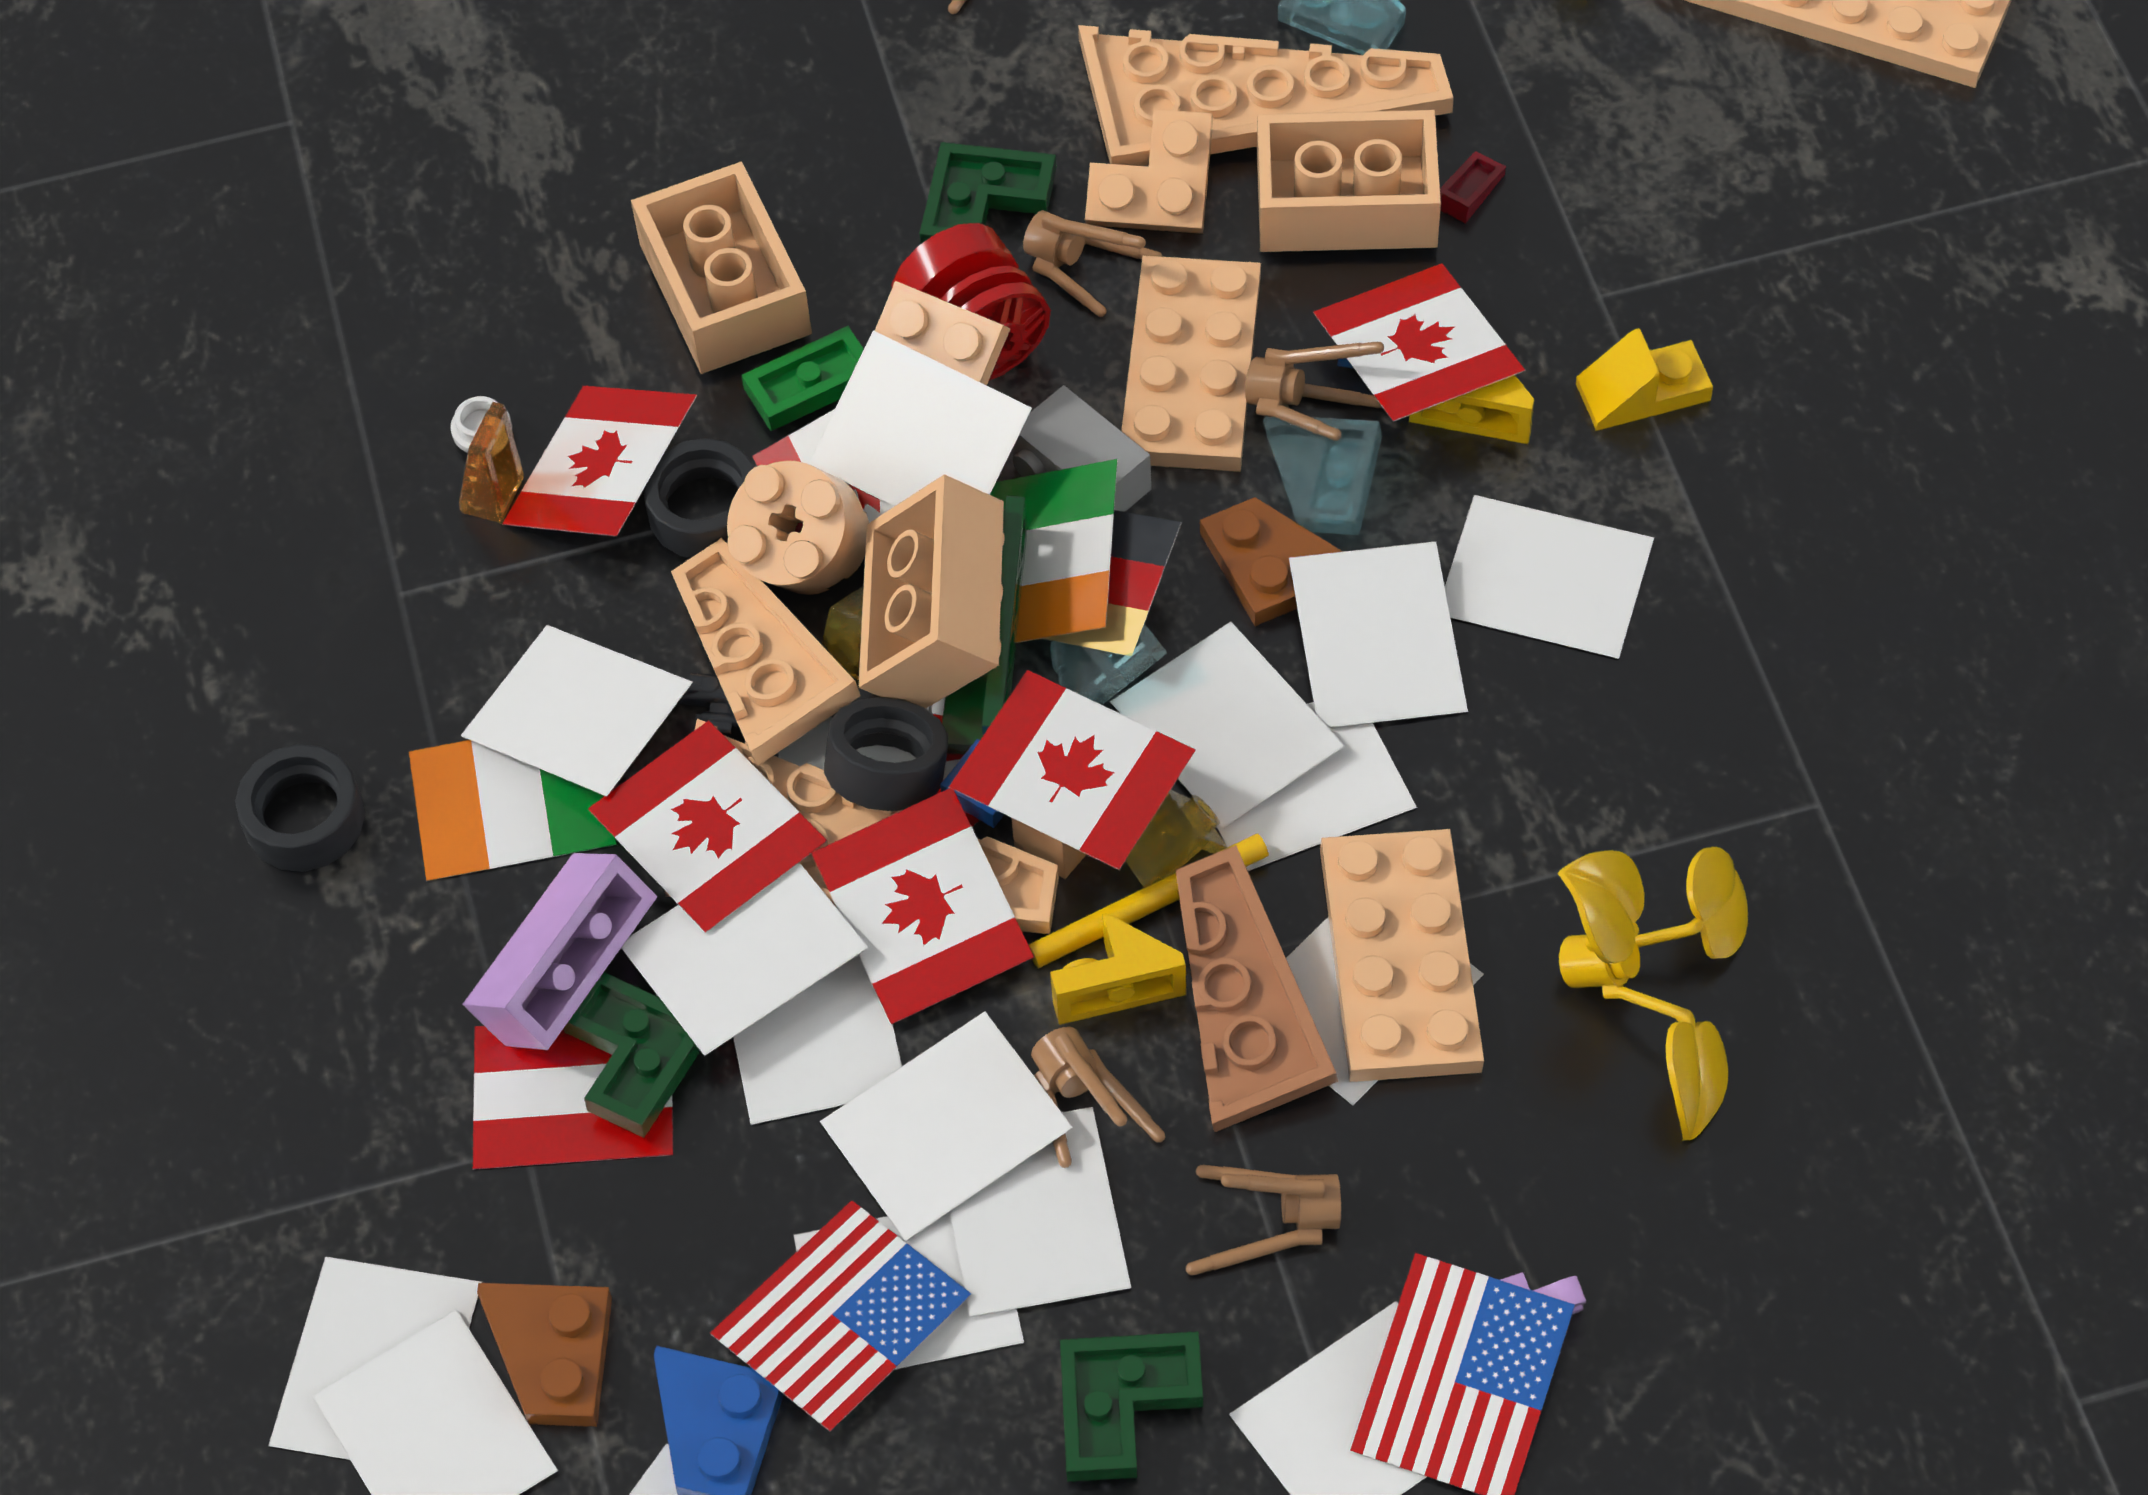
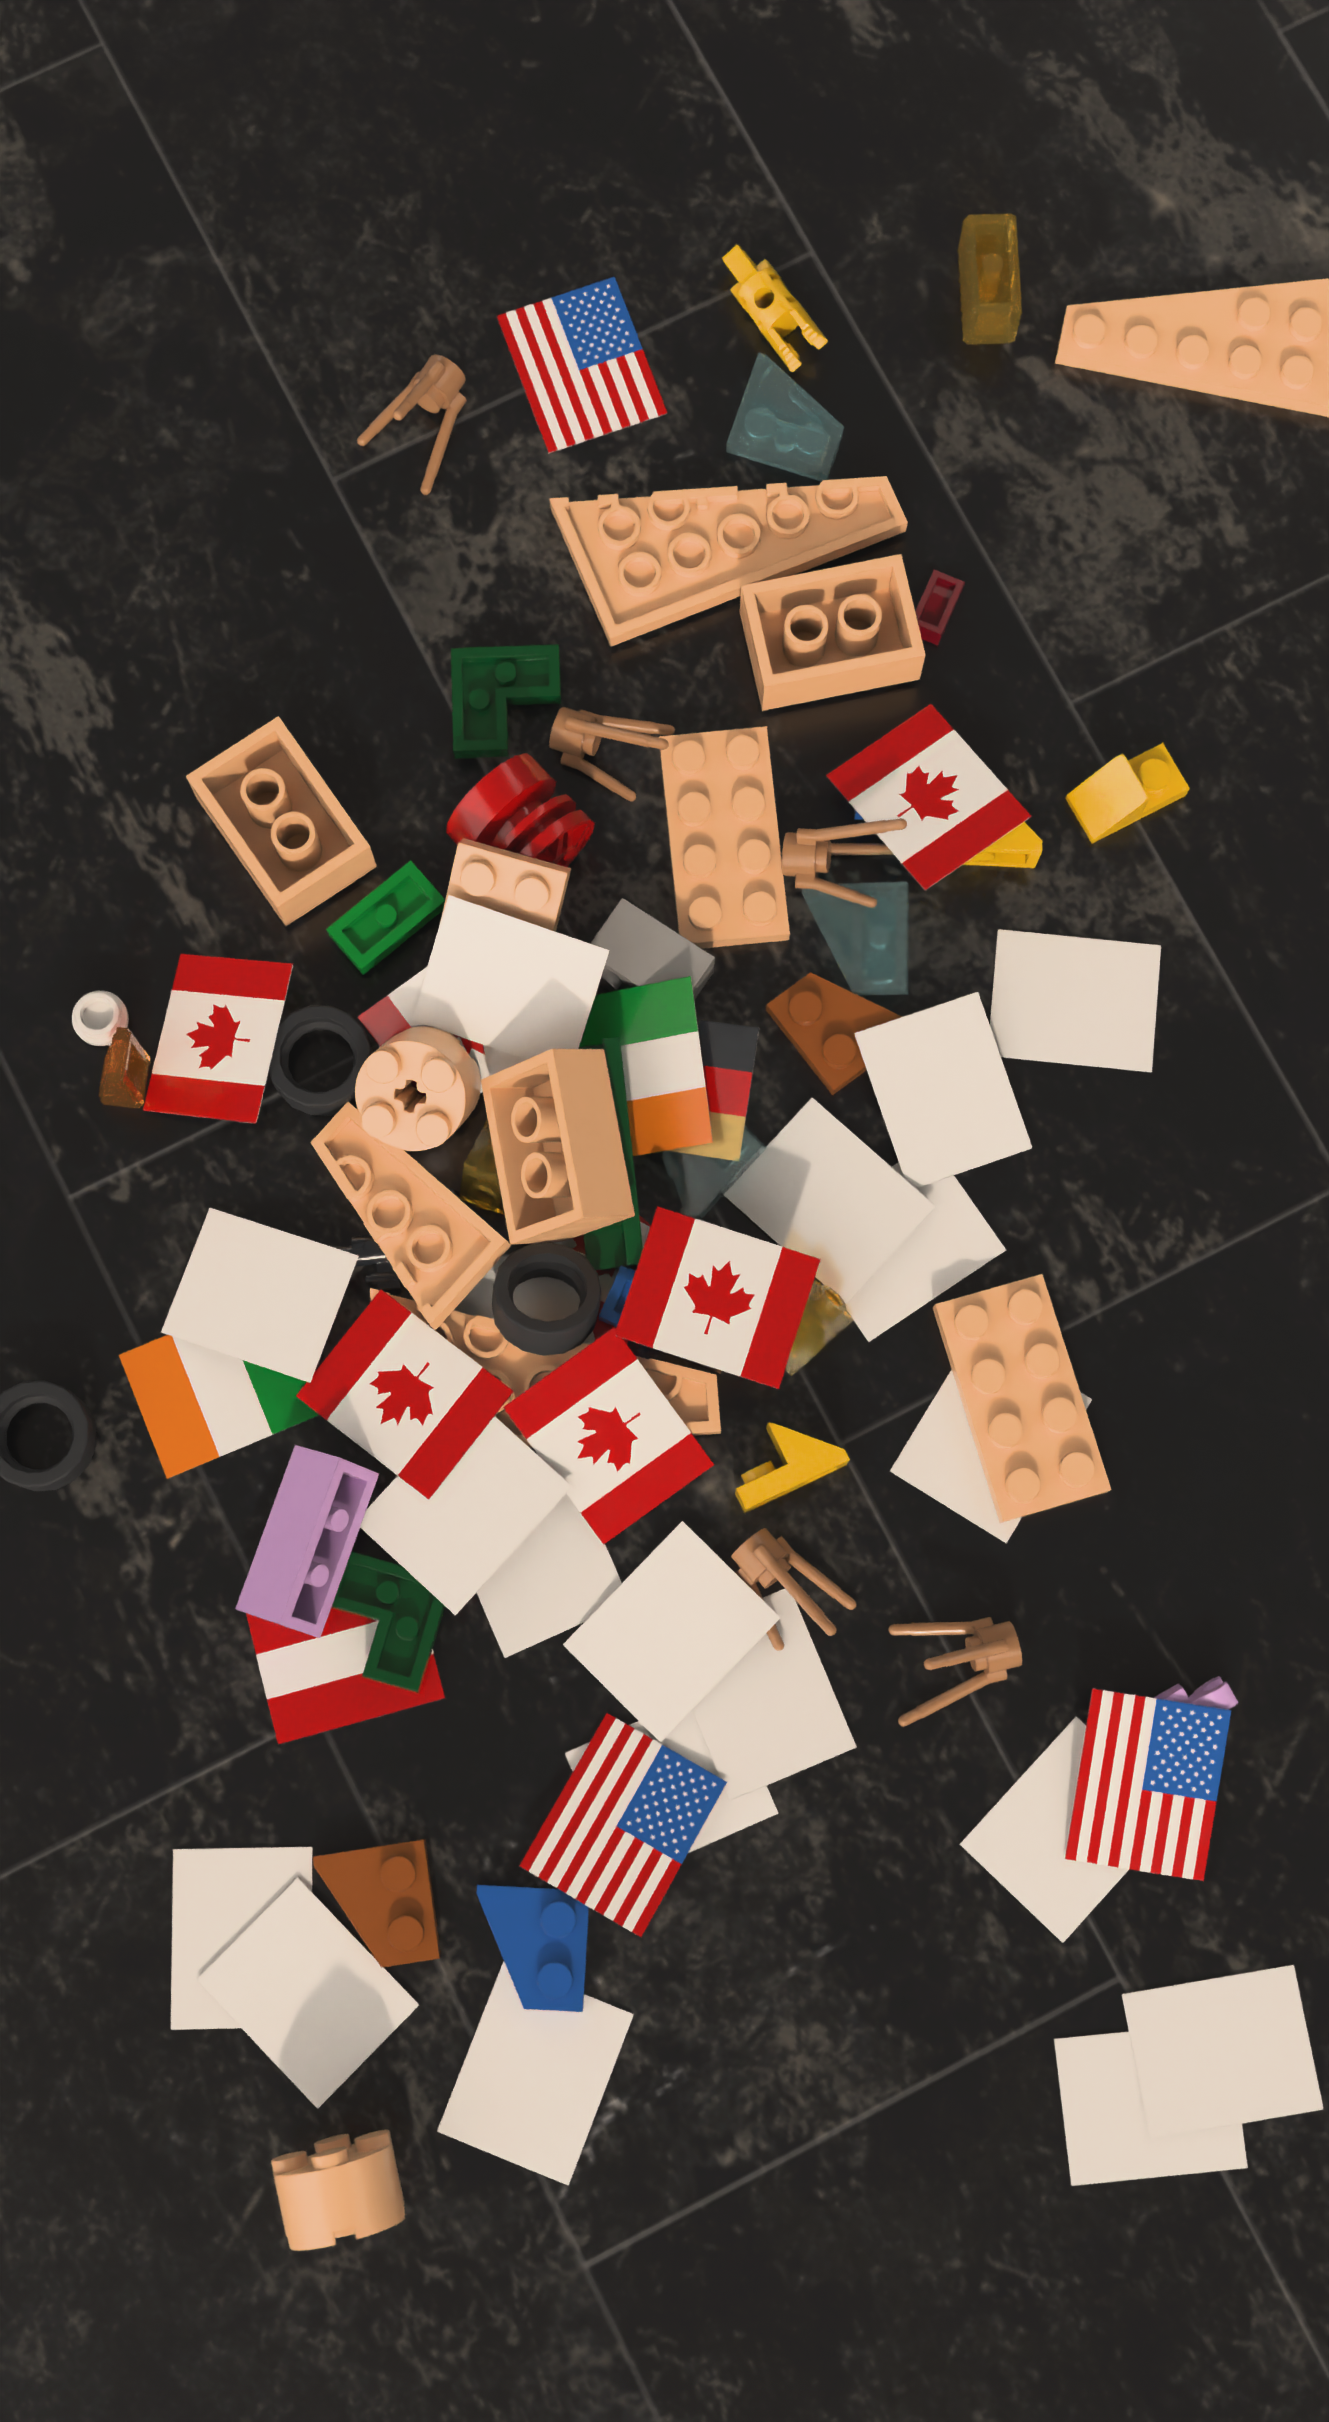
camera: 15 degrees left, 20 degrees up
(1112, 1379) = (857, 1846): dark green plate -> none
(1127, 910) = (797, 1386): yellow bar -> none
(1169, 191) = (669, 664): light nougat plate -> none
(1249, 1009) = (907, 1480): nougat wing -> none
(1609, 904) = (1206, 1378): yellow plant -> none

